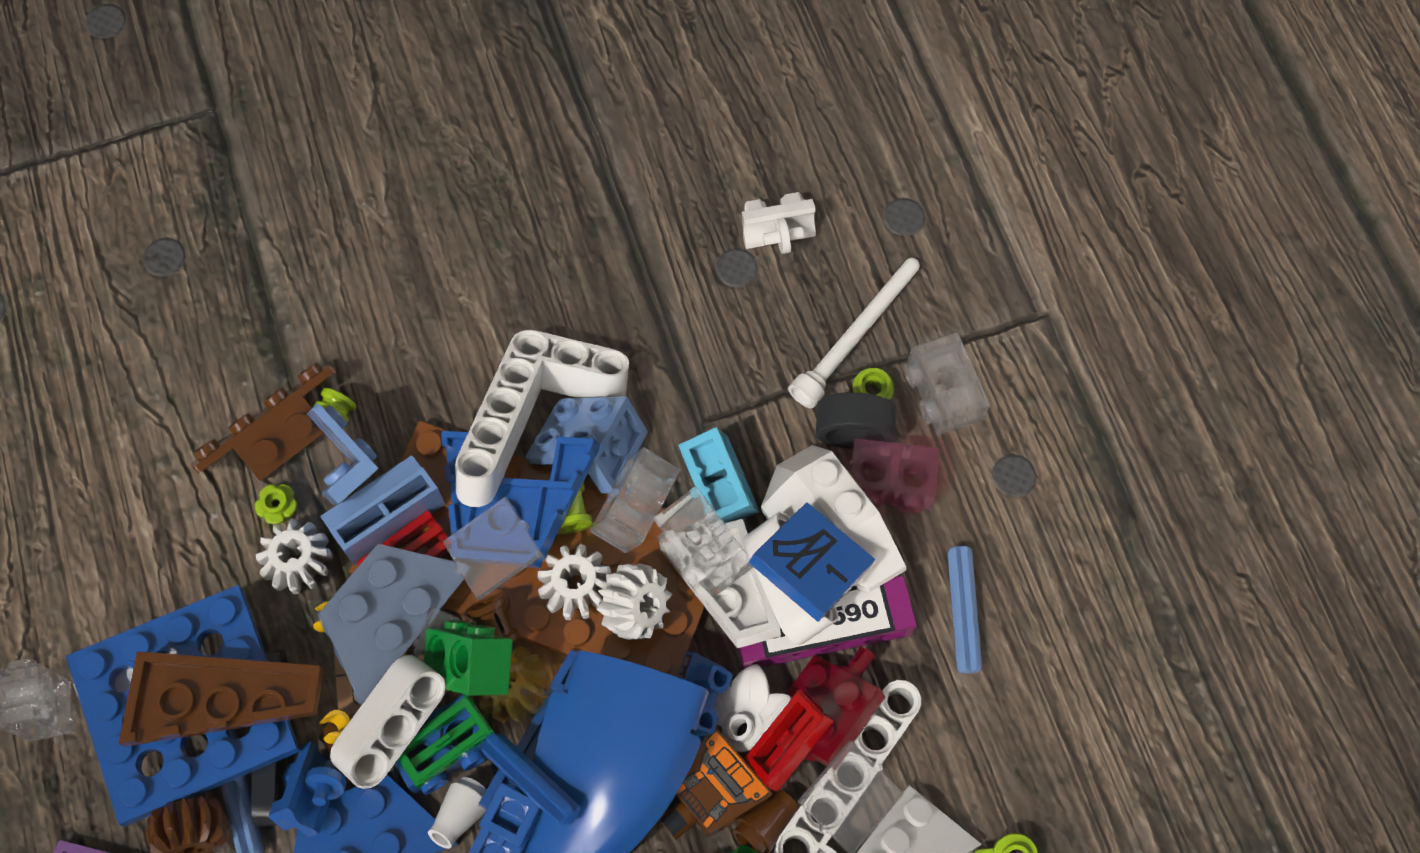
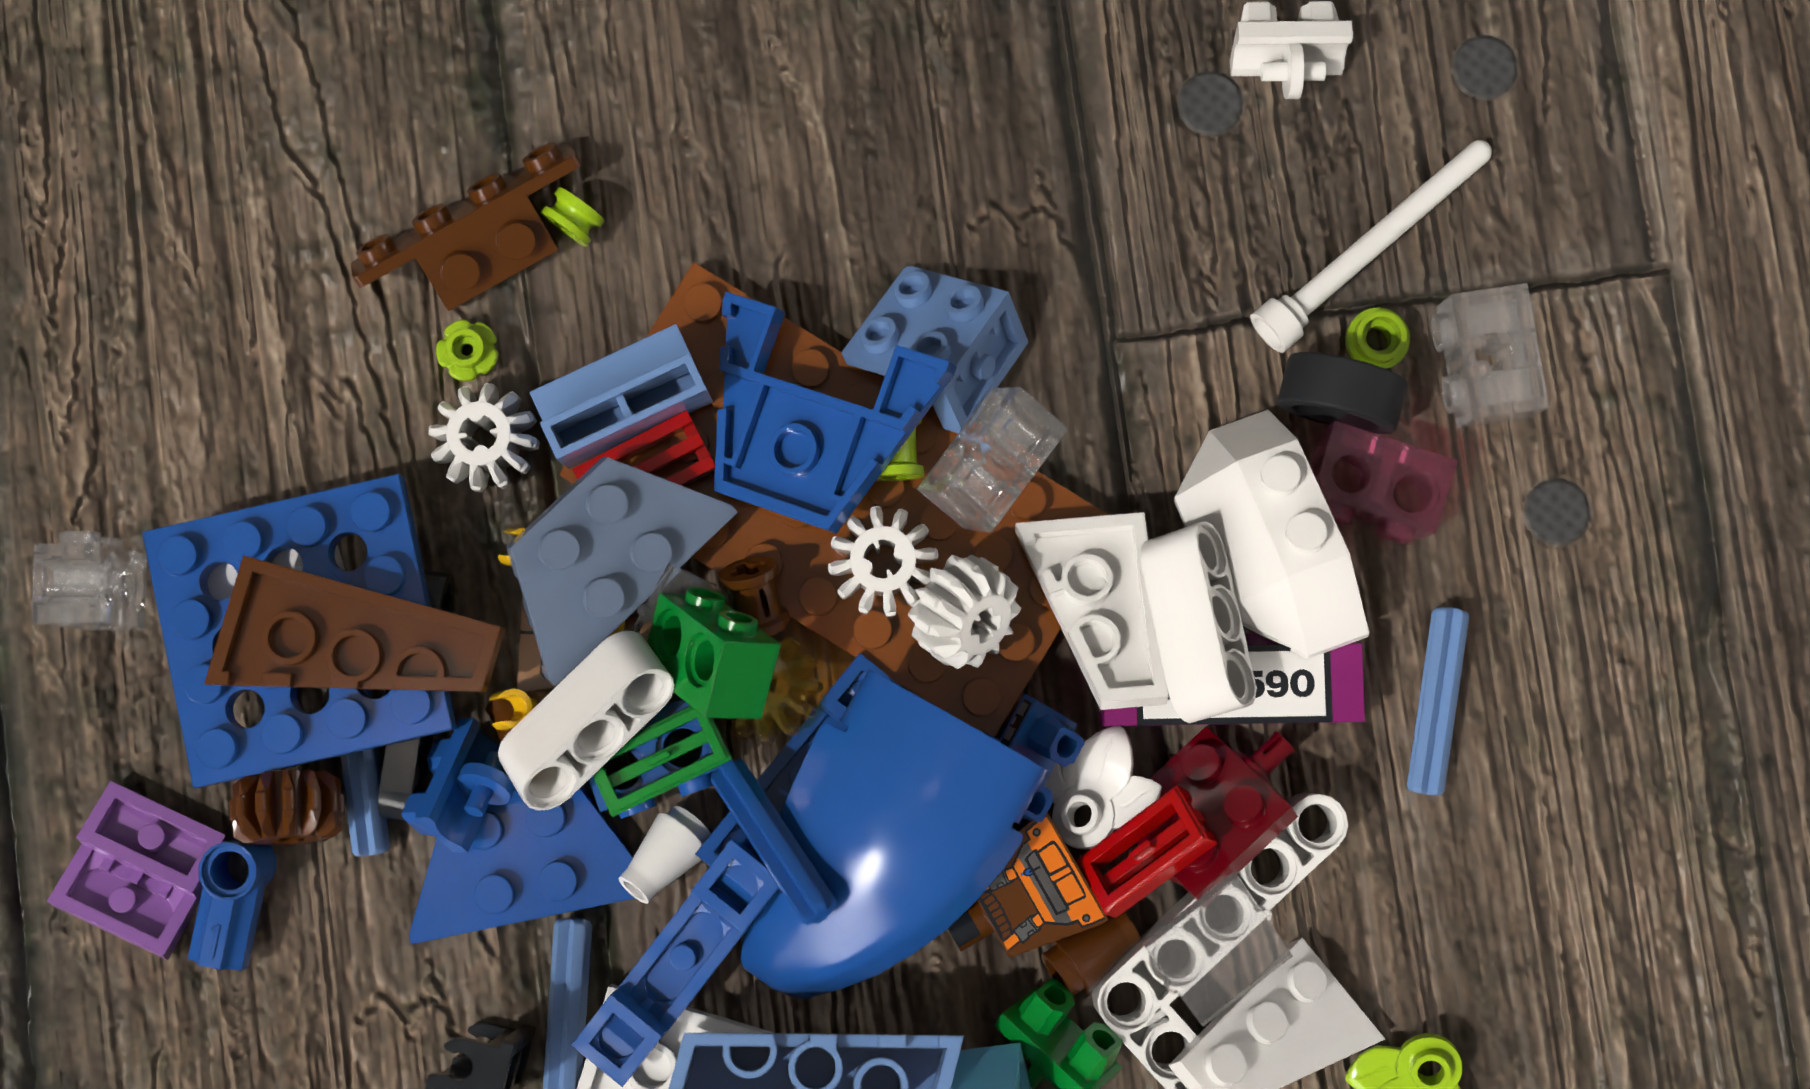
camera: 10 degrees right, 15 degrees up
(343, 478) = (570, 339): medium blue bracket -> none
(492, 548) = (772, 493): clear piece -> none
(529, 364) = (890, 221): white beam -> none
(716, 561) = (1106, 575): clear brick -> none
(719, 475) = (1120, 441): medium azure brick -> none
(812, 561) = (1236, 614): blue tile -> none

